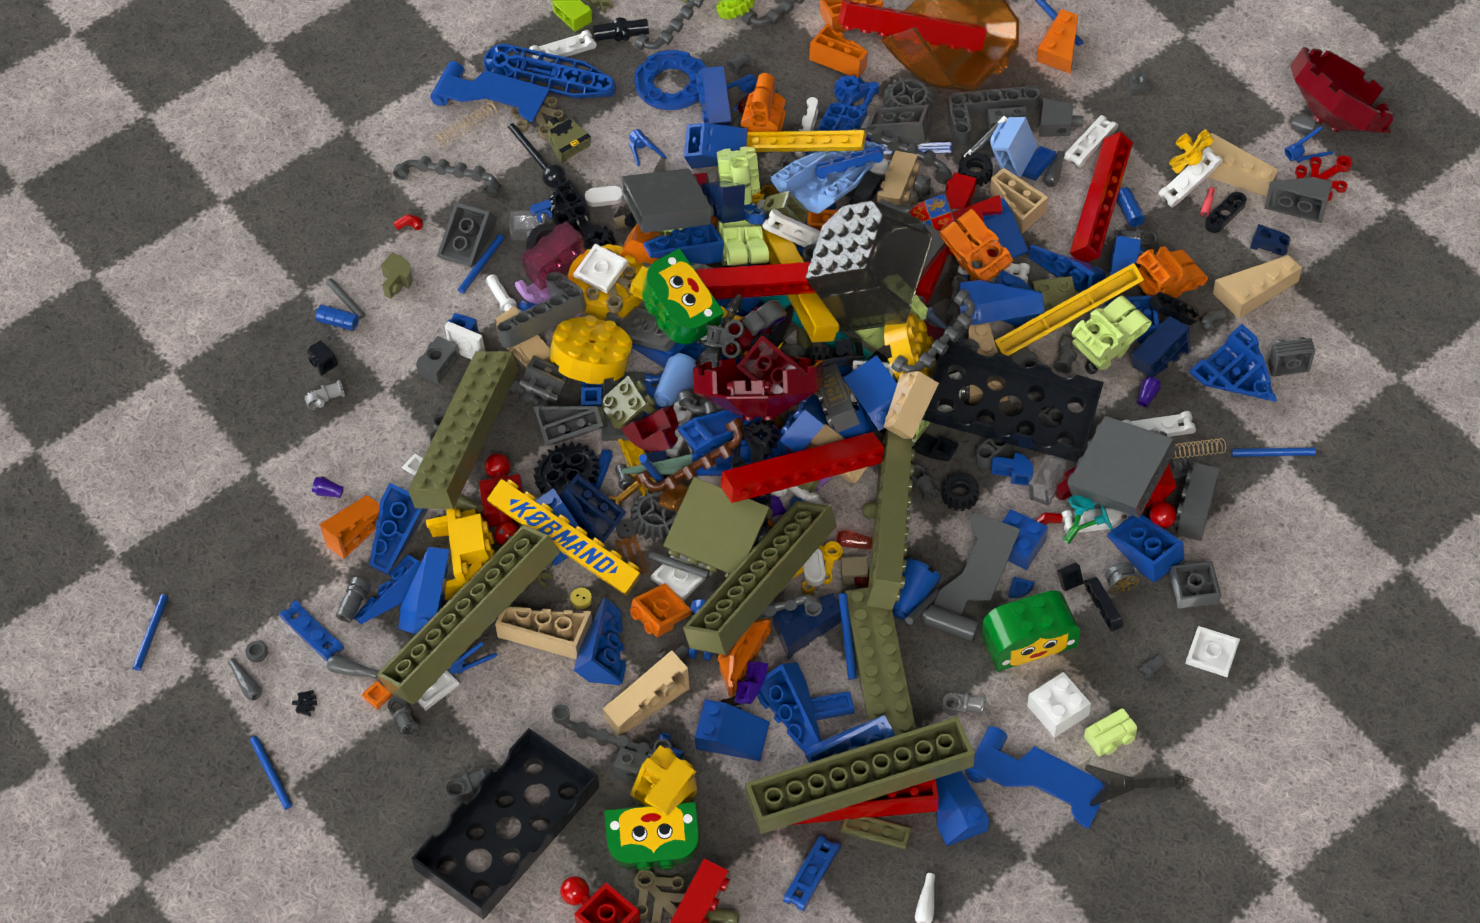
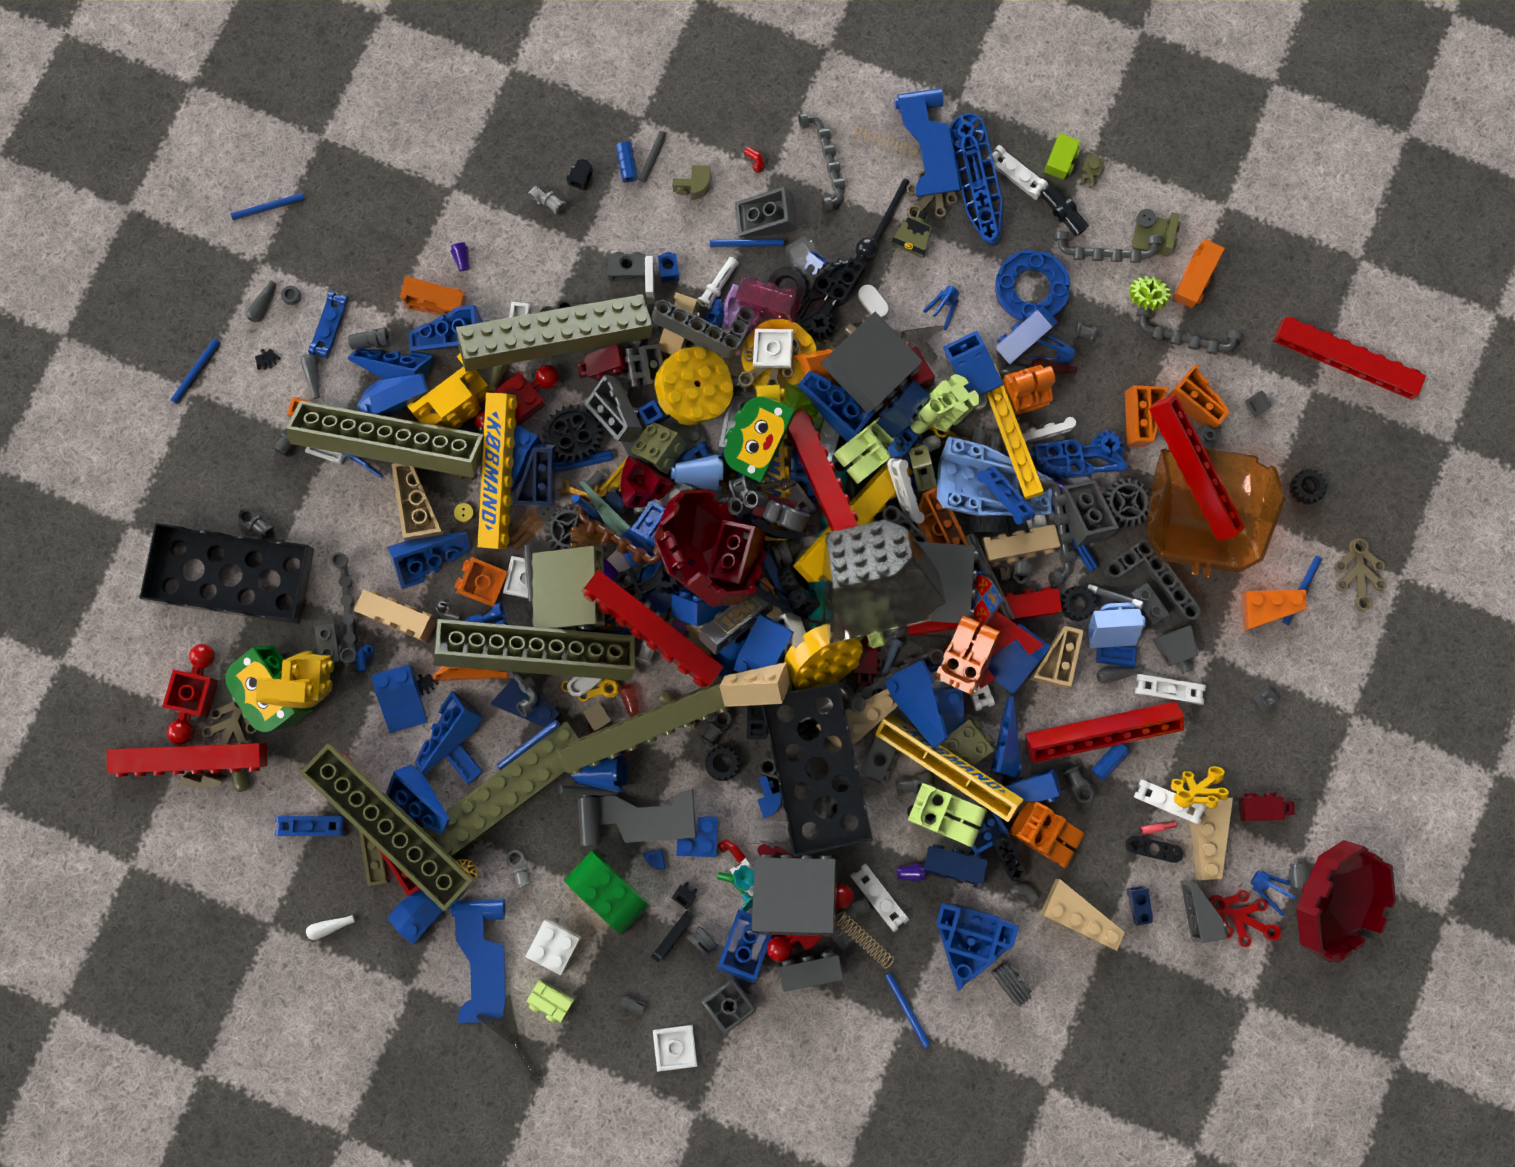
camera: 55 degrees right, 25 degrees up
(517, 415) = (603, 362): none -> dark red brick
(749, 689) = (445, 692): dark purple slope -> none
(940, 346) = (842, 687): dark grey bar -> none
(1232, 121) = (1264, 808): none -> dark red brick

